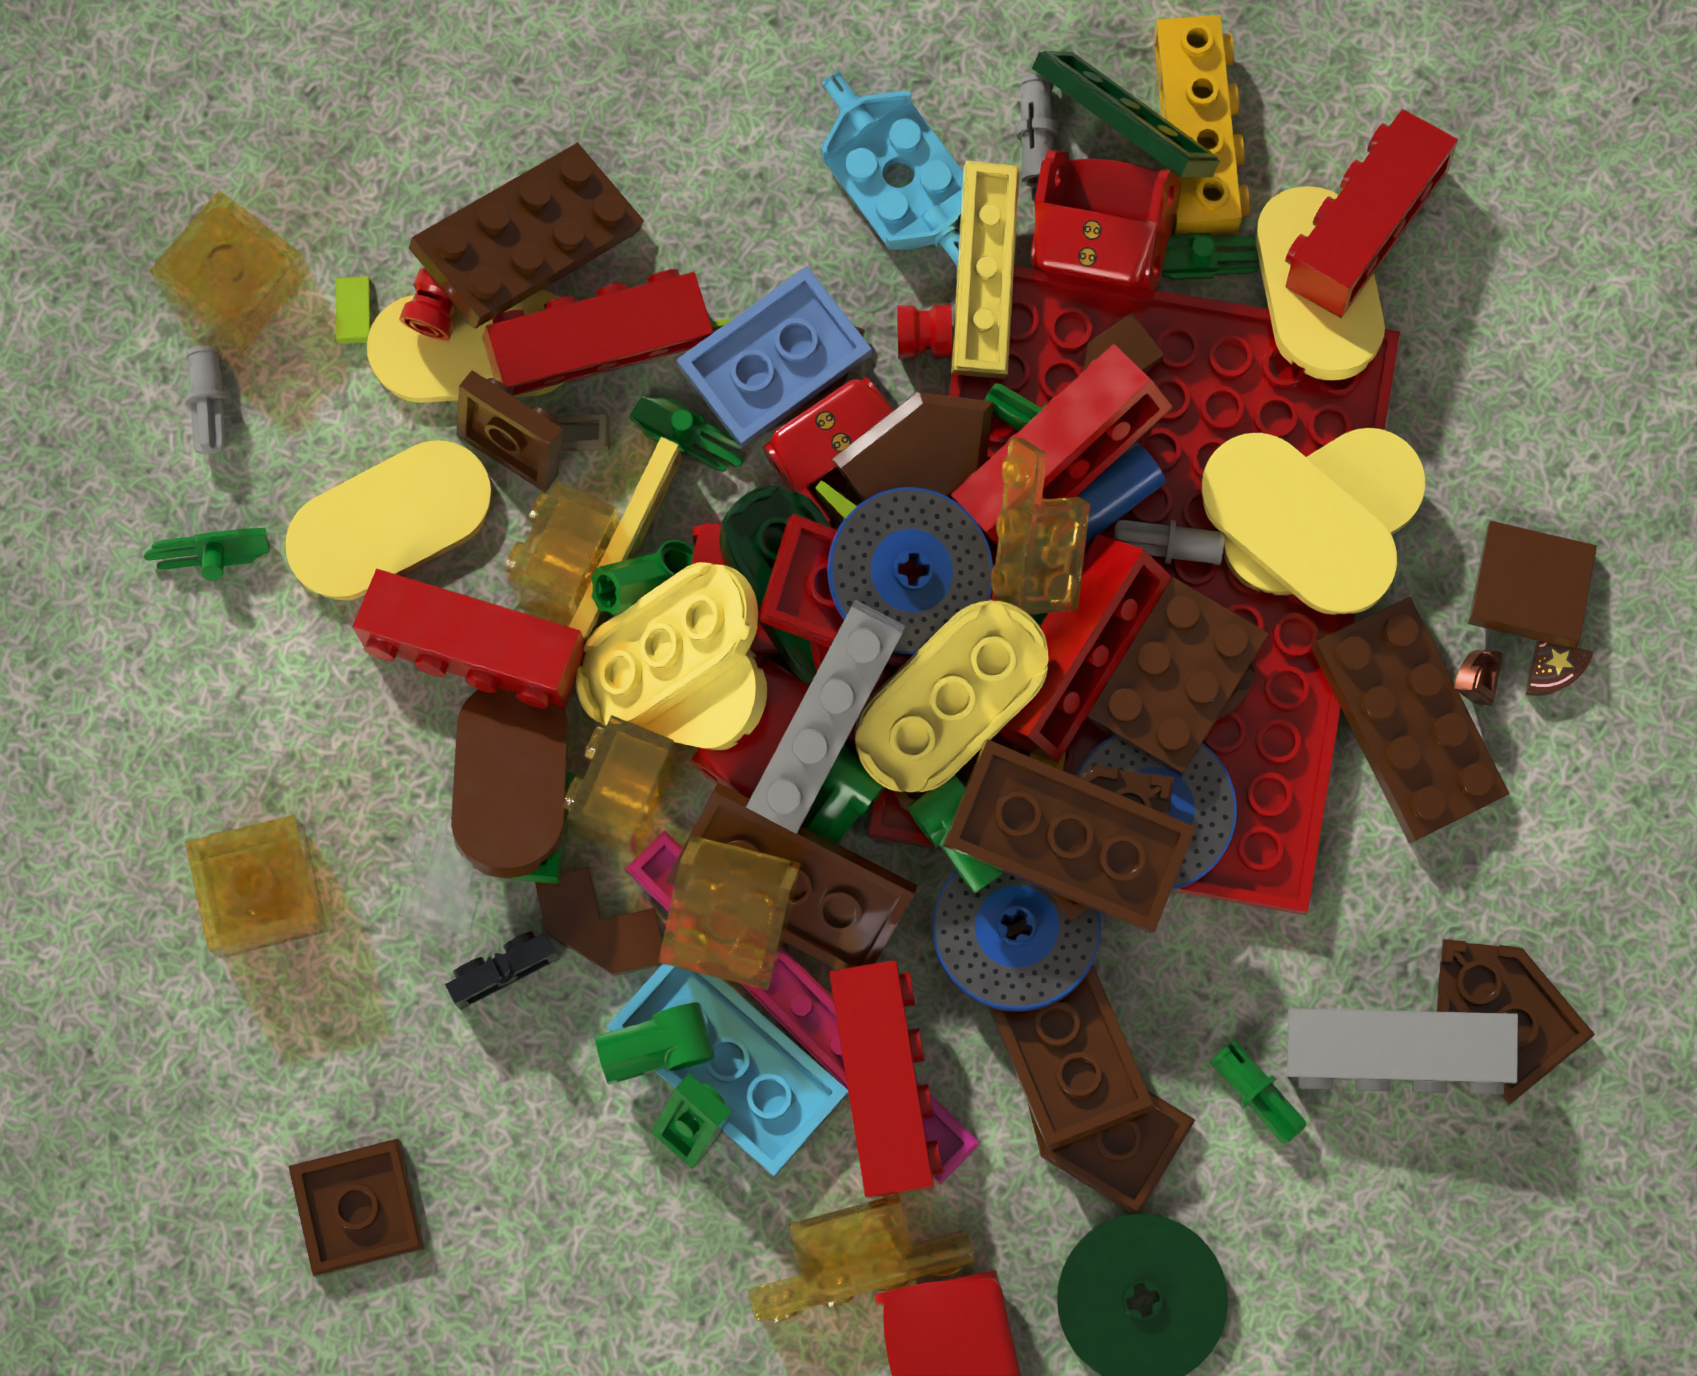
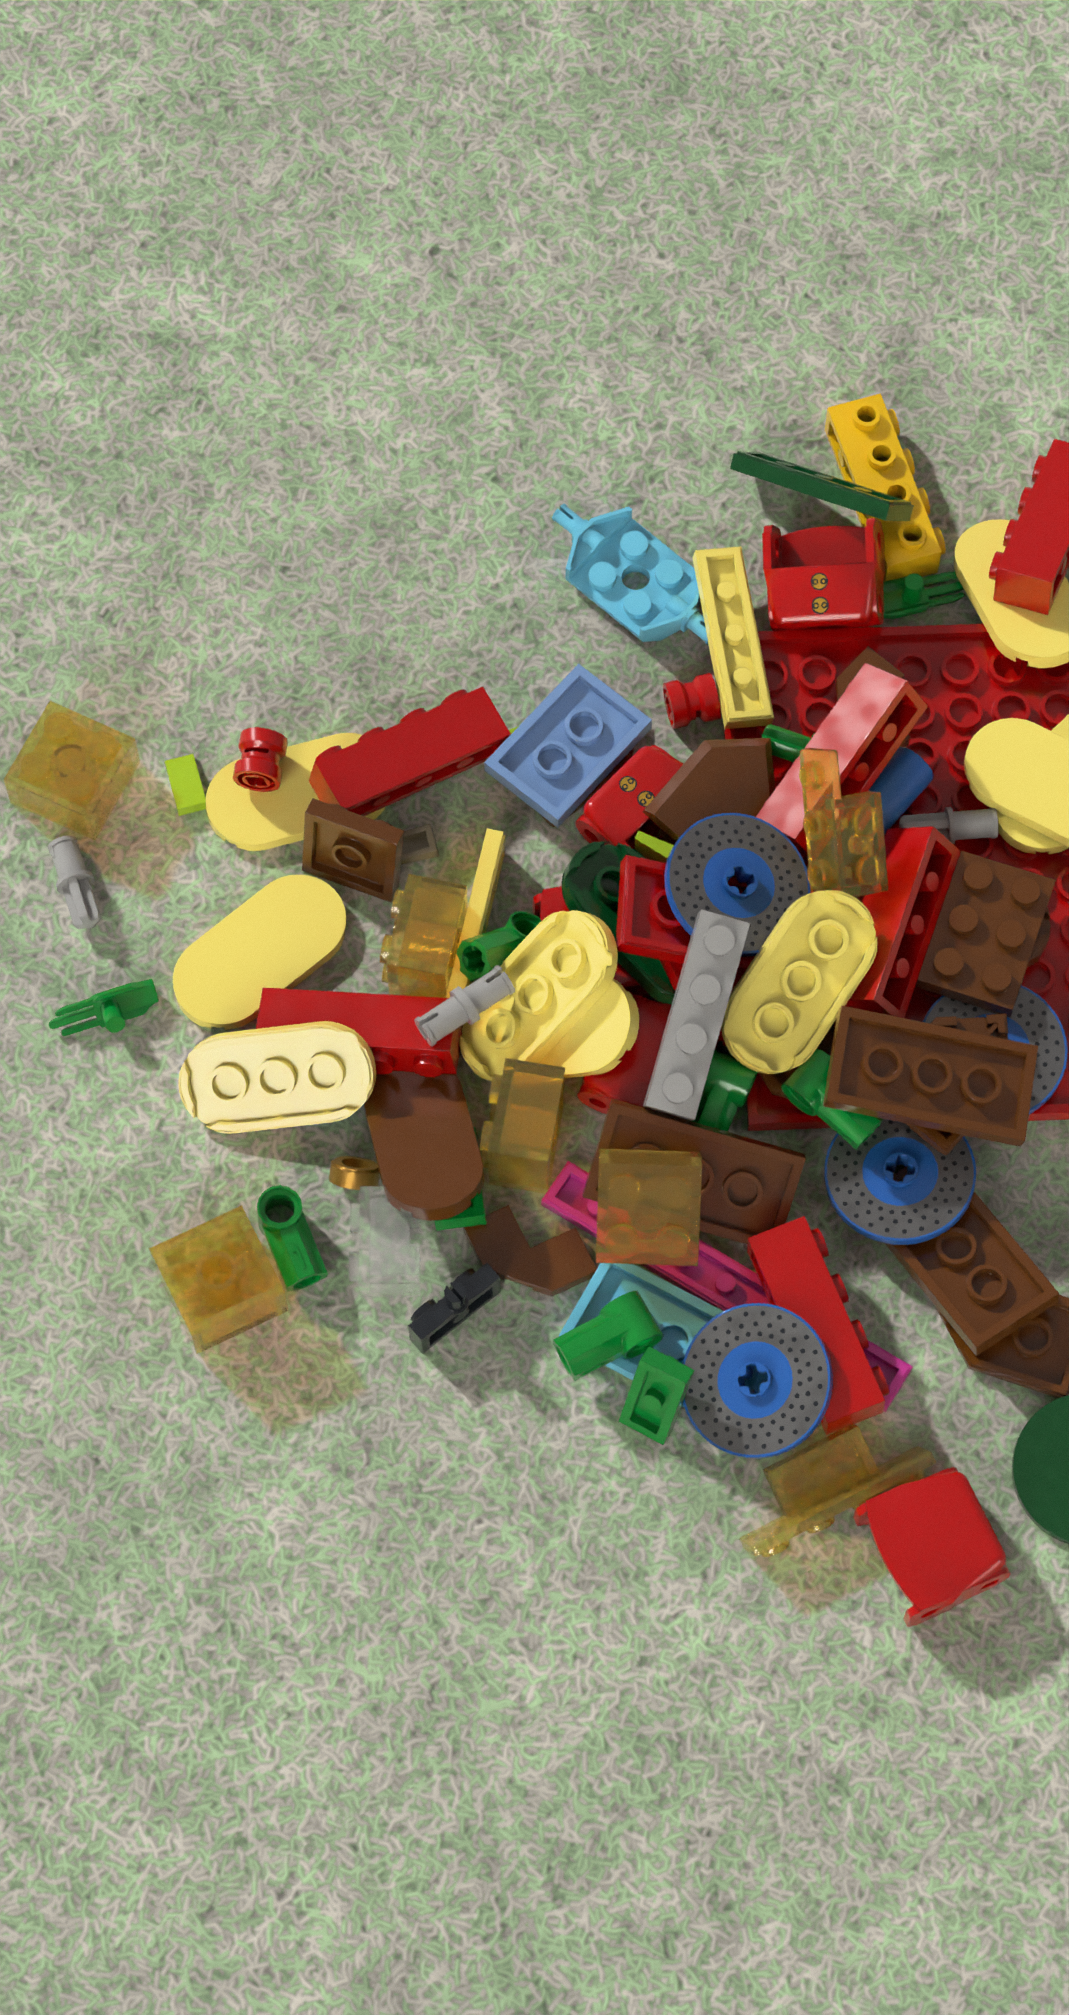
camera: 15 degrees left, 10 degrees down
(345, 860) = (290, 1240): none -> green piece
(356, 1207) = (371, 1542): reddish brown tile -> none
(370, 673) = (277, 1077): none -> light yellow tile
(429, 796) = (354, 1172): none -> pearl gold tile
(525, 235) = (327, 686): reddish brown plate -> none
(582, 644) = (464, 1005): none -> light grey pin
(683, 426) = (478, 816): green piece -> none
(844, 1137) = (787, 1405): none -> flat silver piece
(1037, 127) = (745, 518): light grey pin -> none

